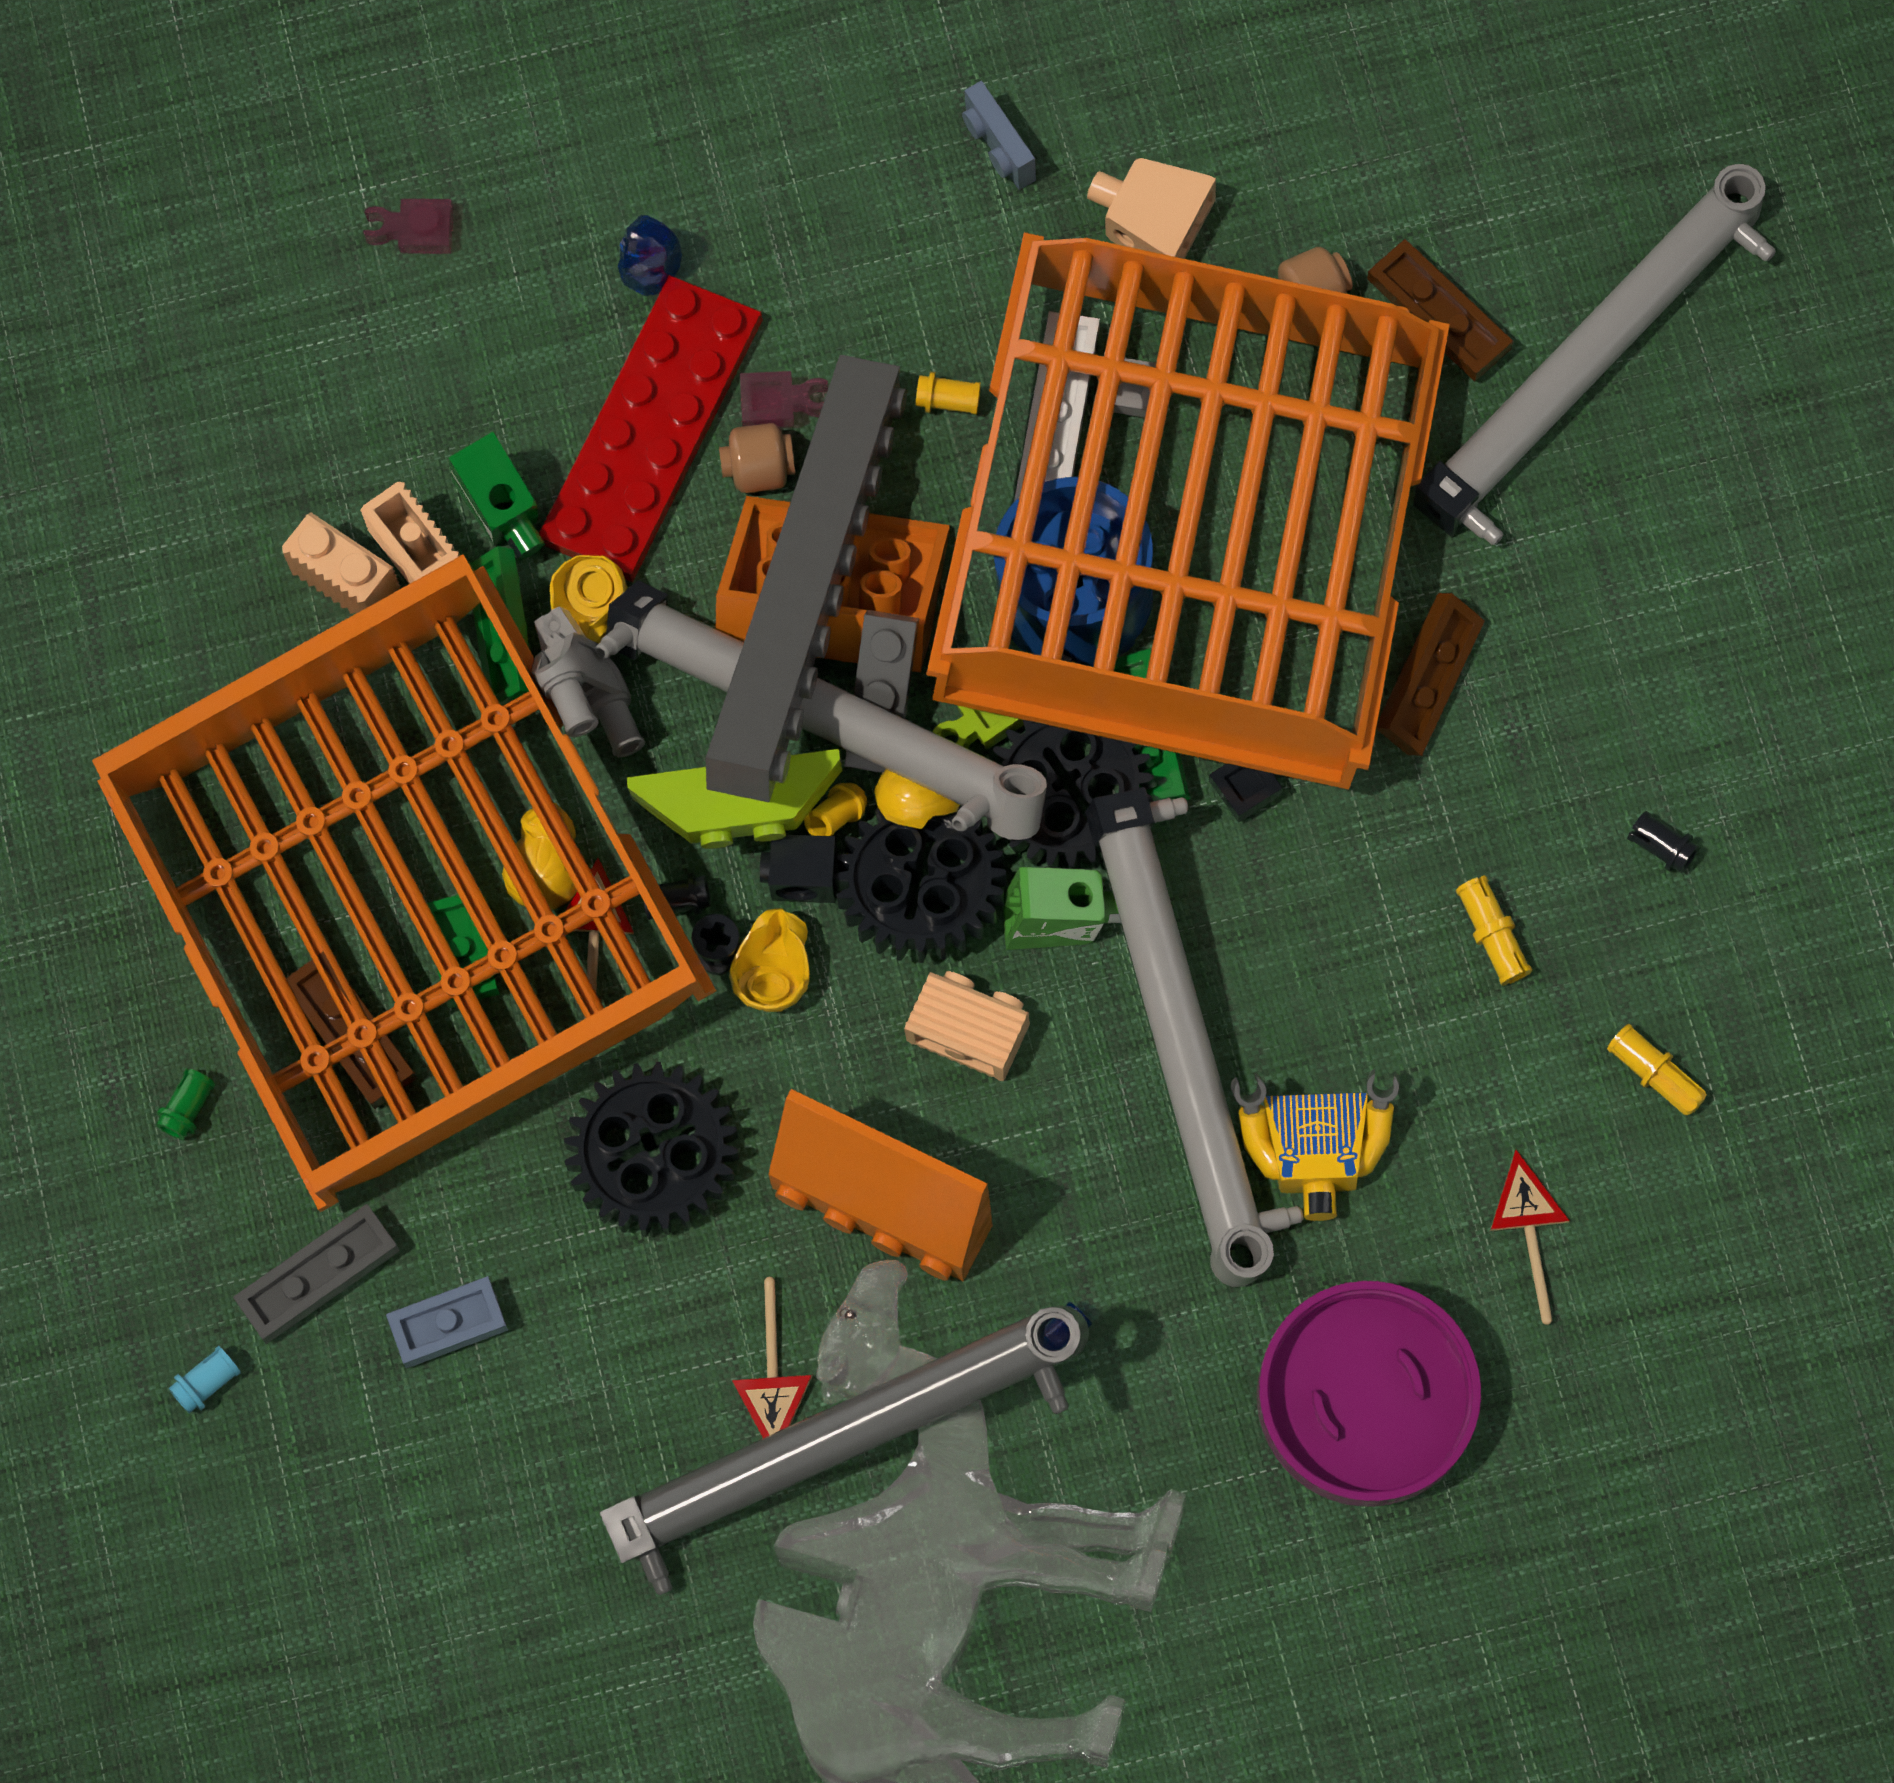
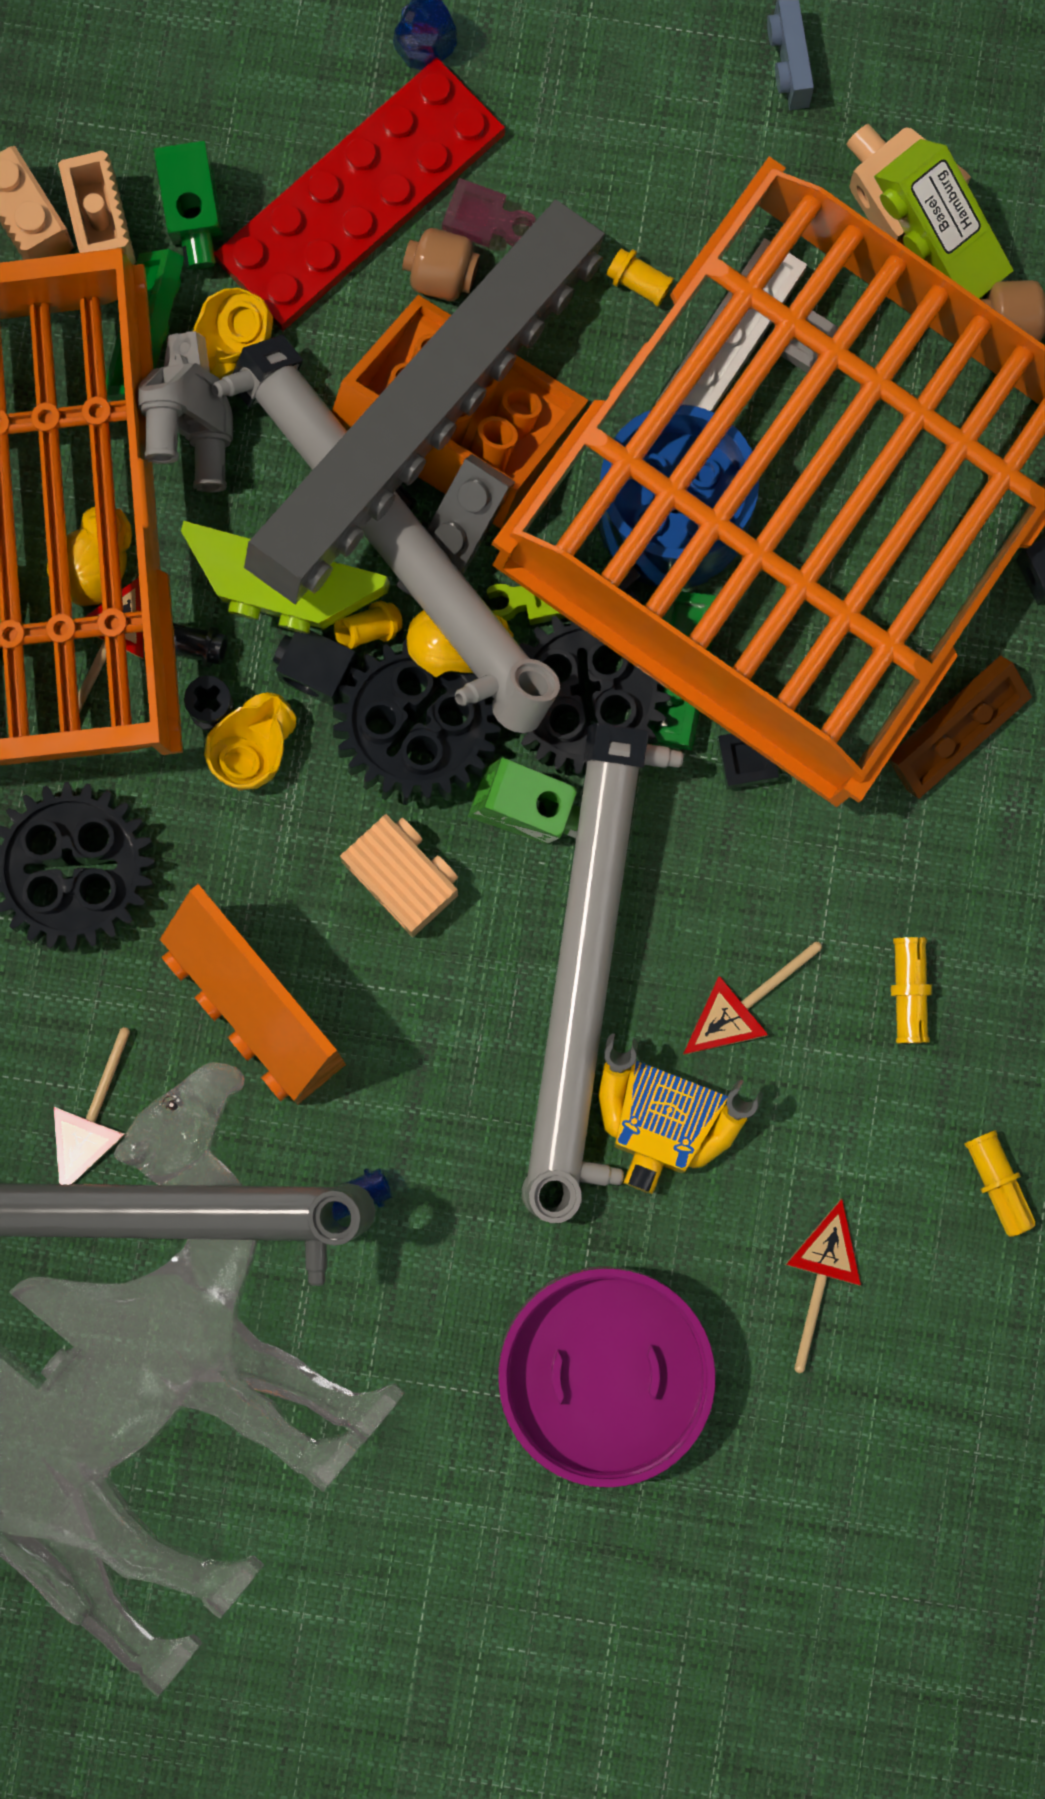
camera: 15 degrees right, 10 degrees up
(1205, 221) = (942, 217): none -> lime brick
(1334, 1030) = (727, 1019): none -> piece

